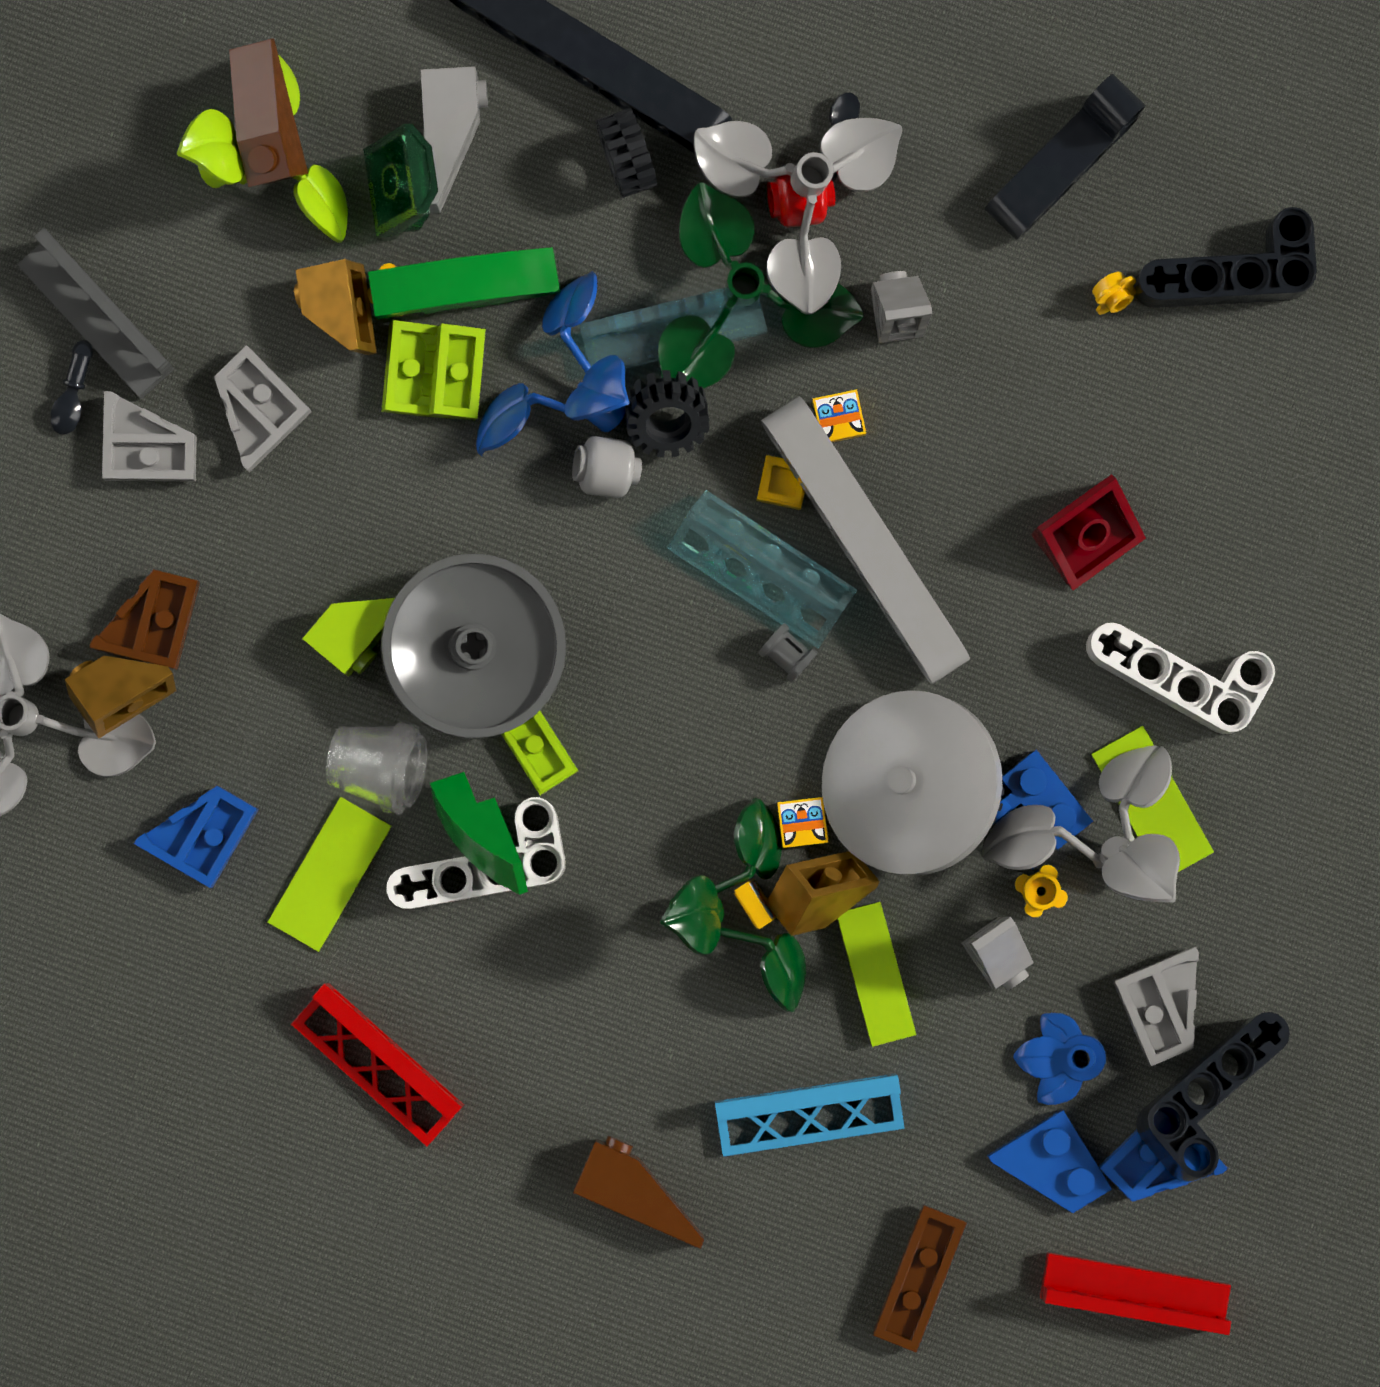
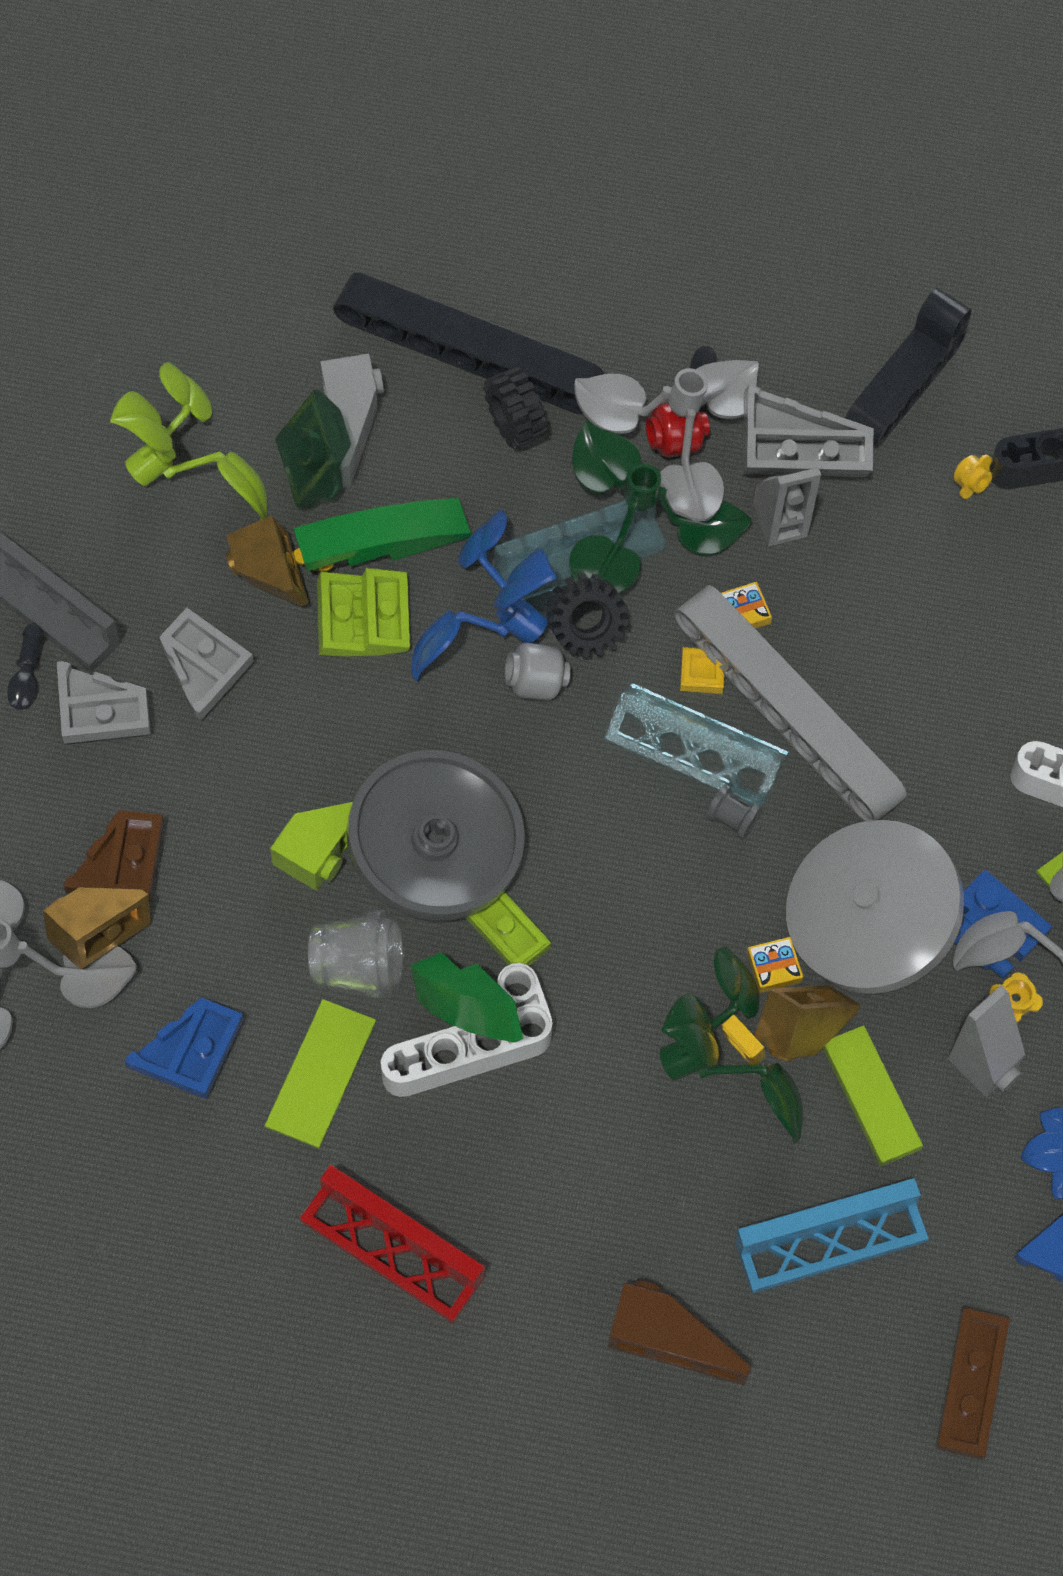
camera: 10 degrees left, 20 degrees down
(264, 116) = (185, 406): reddish brown slope -> none
(930, 234) = (793, 438): none -> light grey wedge
(1089, 533) = (993, 672): dark red slope -> none

